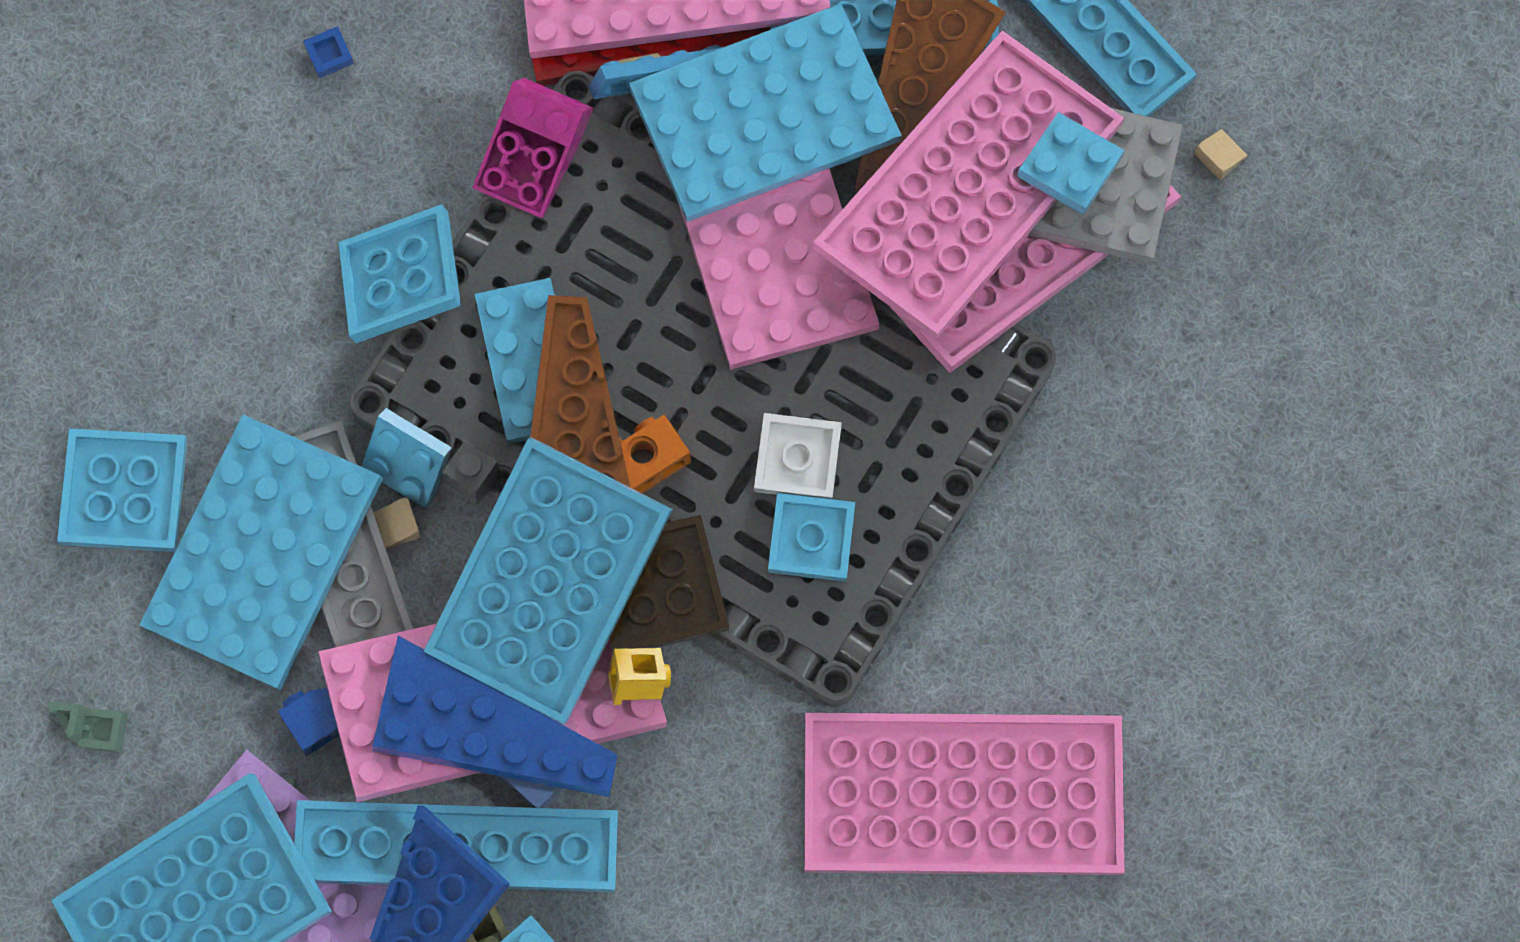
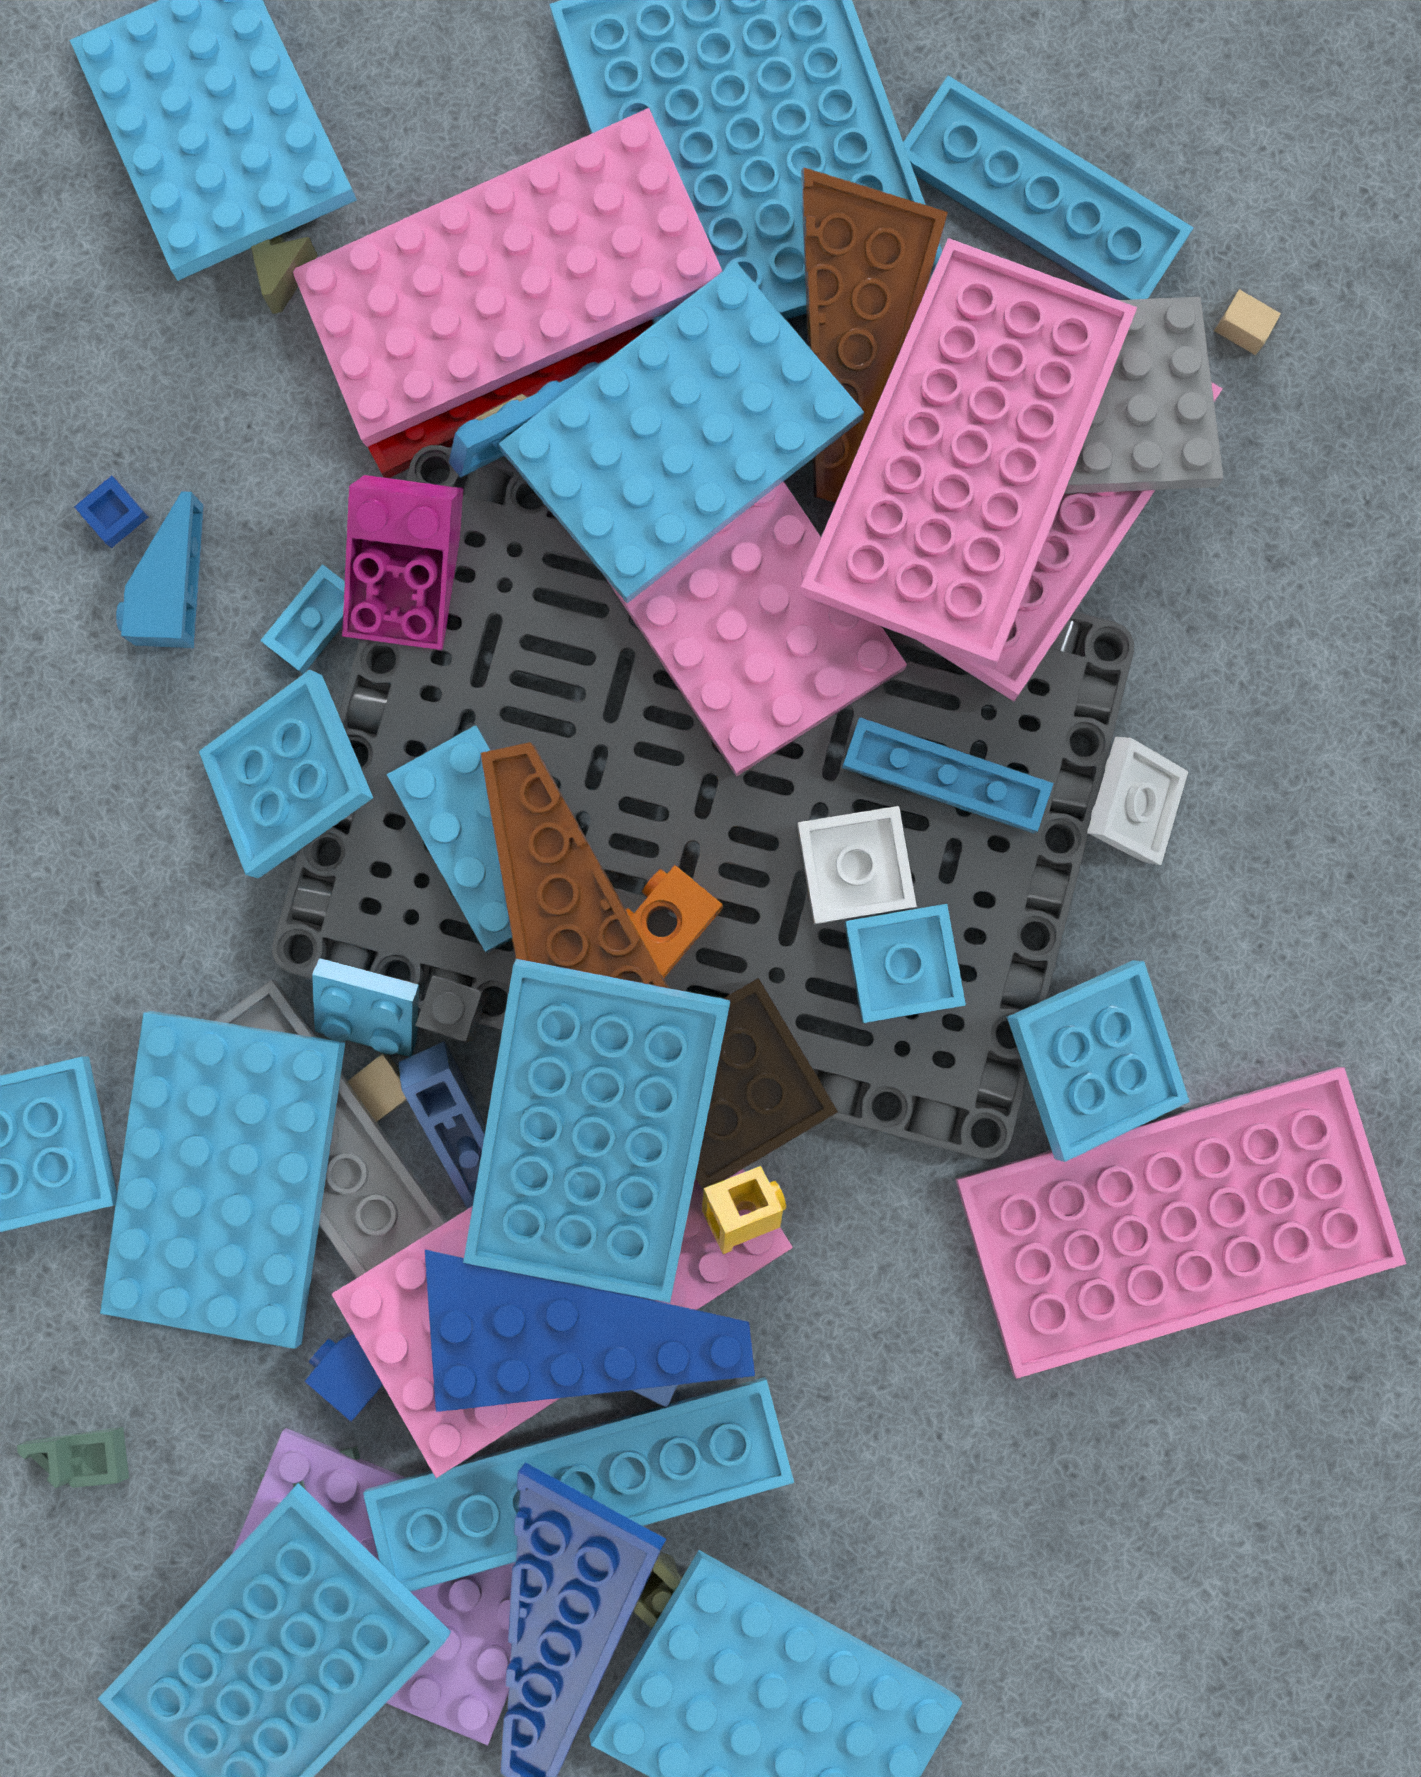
camera: 15 degrees left, 10 degrees up
(351, 115) = (164, 586): none -> dark azure slope
(440, 553) = (446, 1114): none -> medium blue slope
(449, 171) = (309, 621): none -> medium azure plate
(884, 412) = (947, 775): none -> dark azure plate
(936, 652) = (1098, 1060): none -> medium azure plate
(1024, 476) = (1137, 801): none -> white plate
(1070, 163) = (1093, 386): medium azure plate -> none

